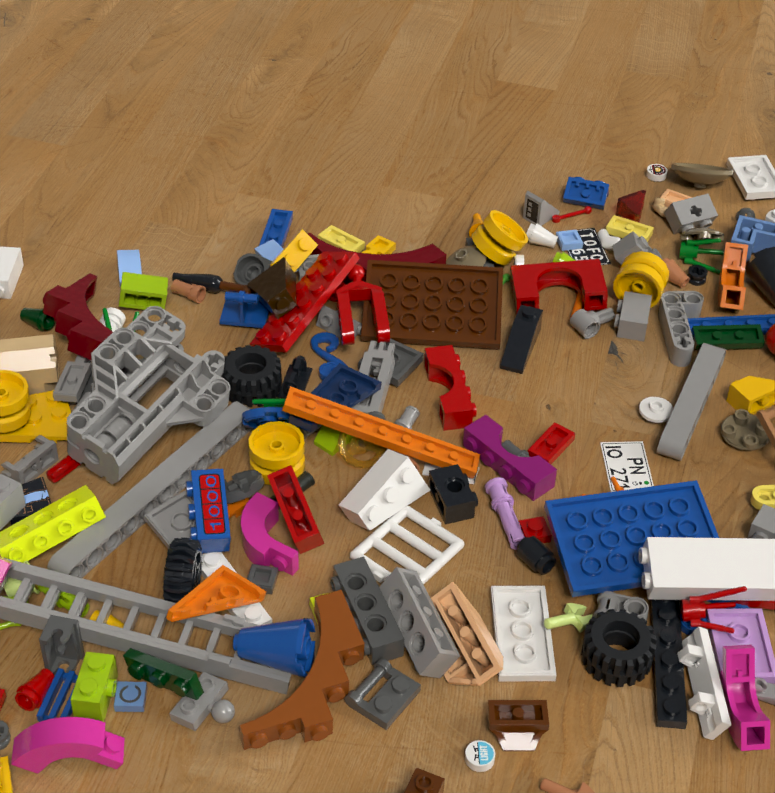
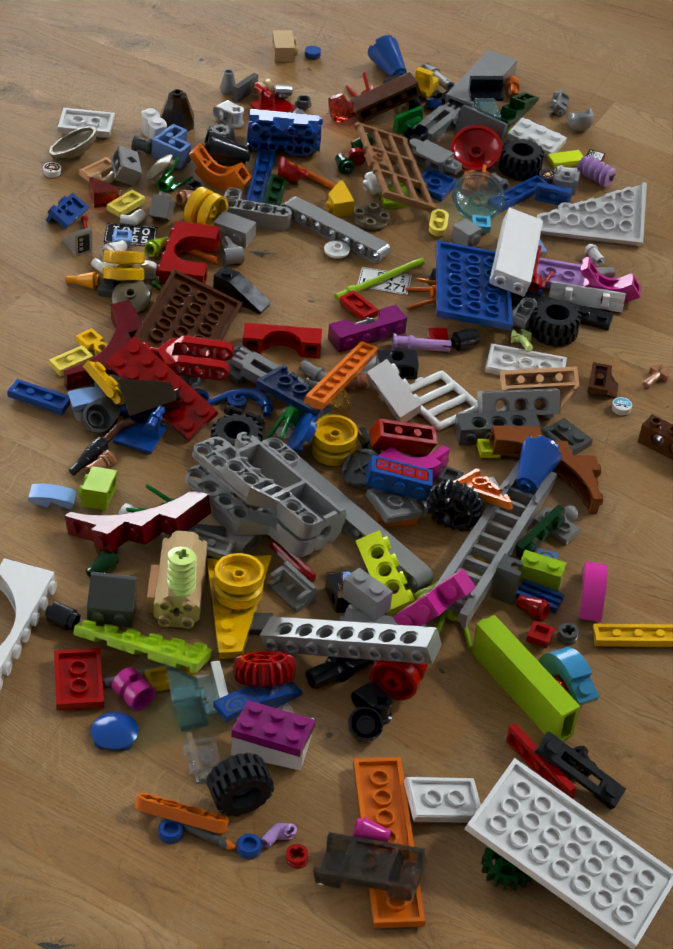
camera: 80 degrees left, 0 degrees up
(582, 435) = (381, 278): none -> lime bar

